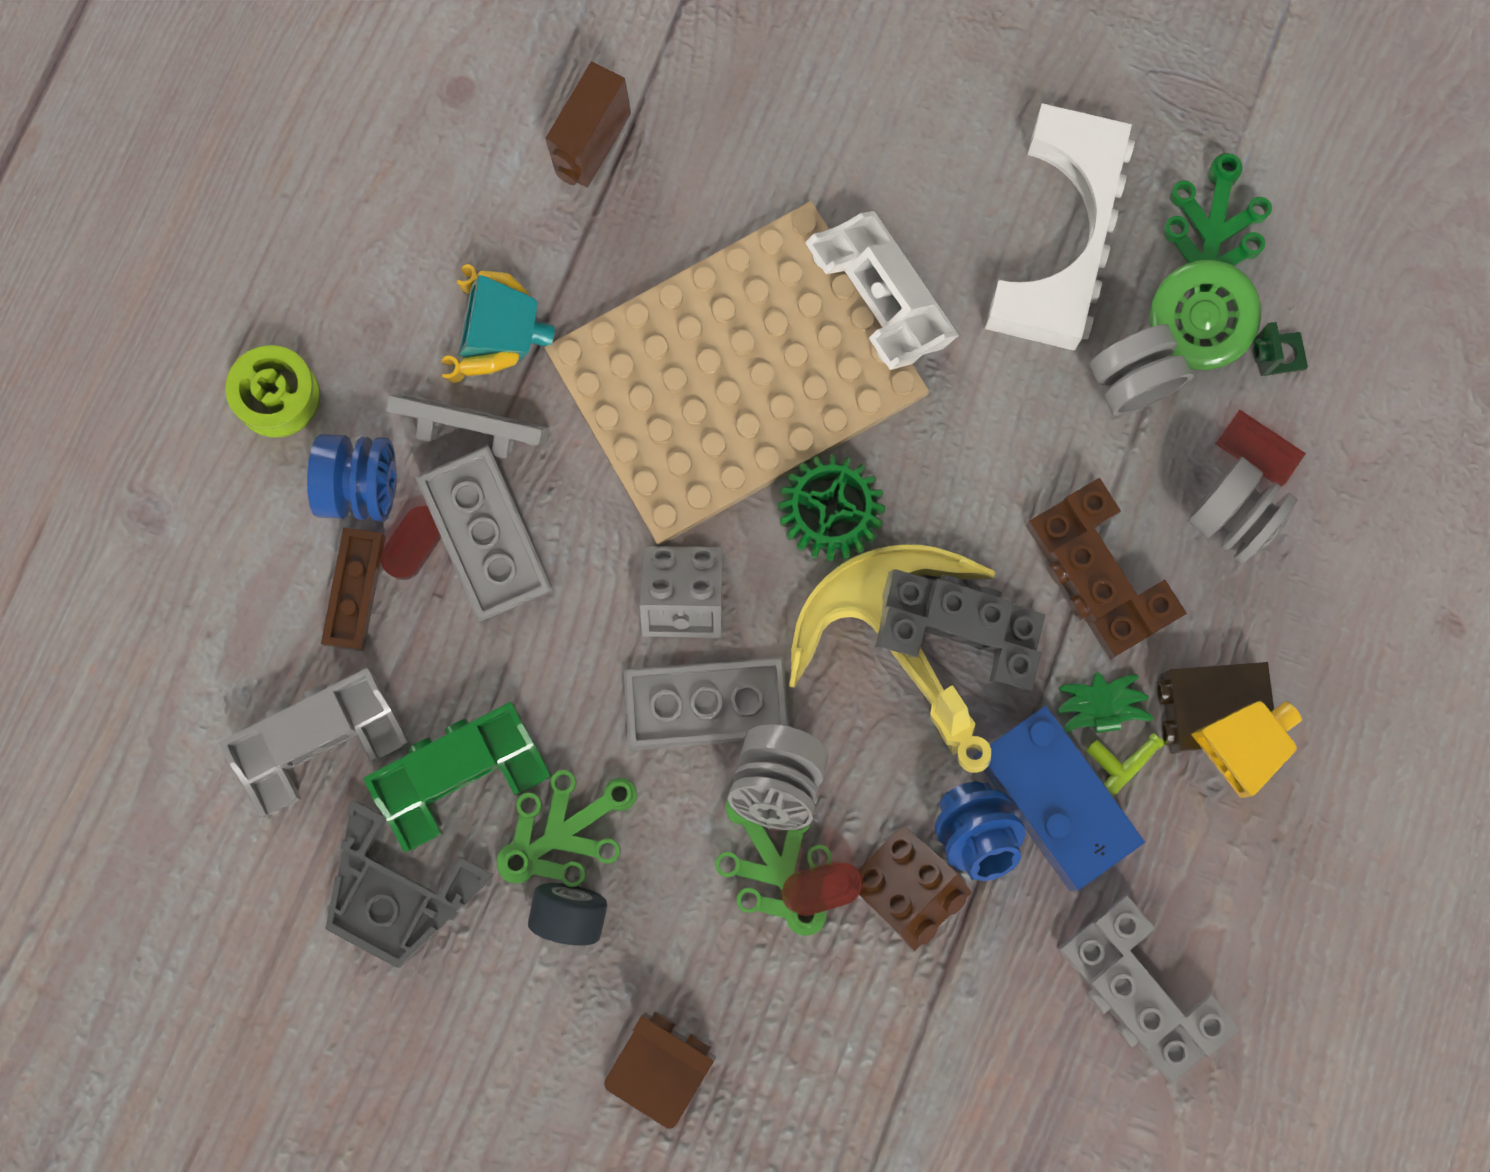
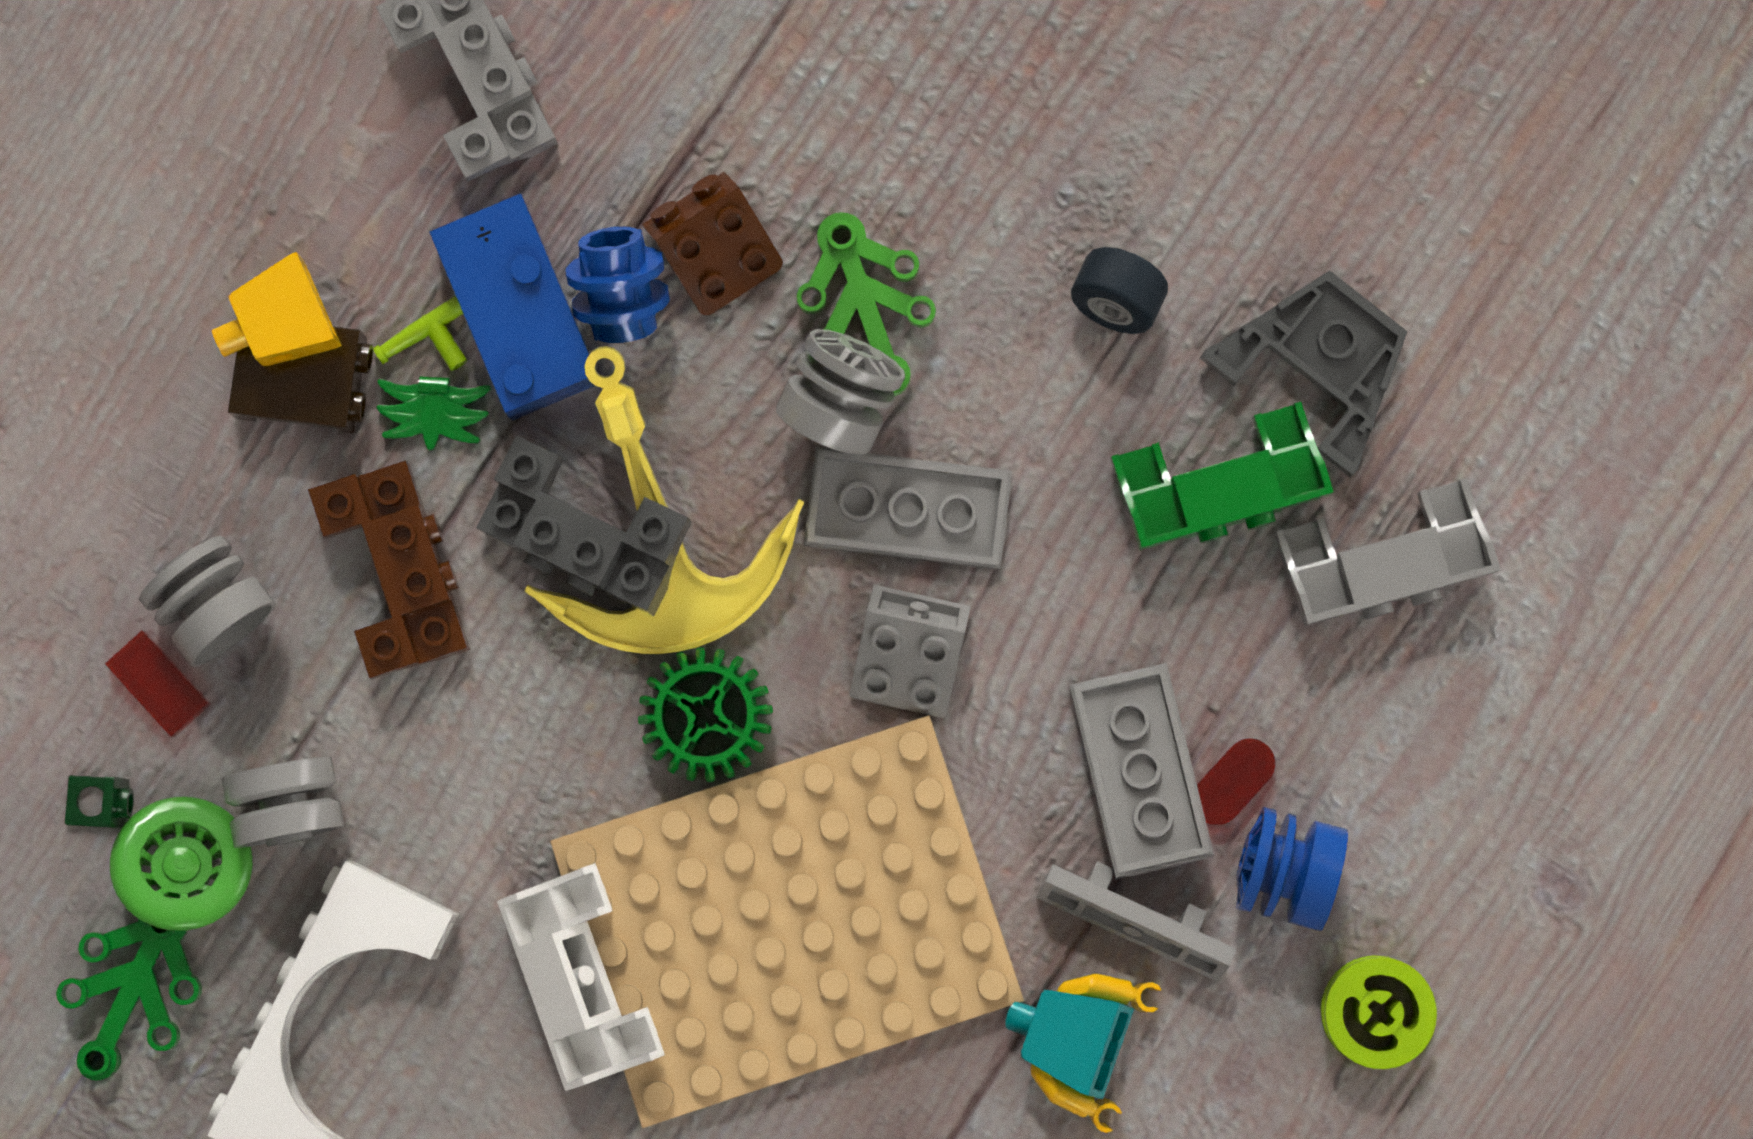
camera: 170 degrees left, 5 degrees up
(353, 589) = (1314, 735): reddish brown plate -> none
(560, 833) = (1111, 387): bright green plant -> none
(659, 1069) = (1044, 98): reddish brown bracket -> none
(822, 888) = (816, 258): clear red tile -> none

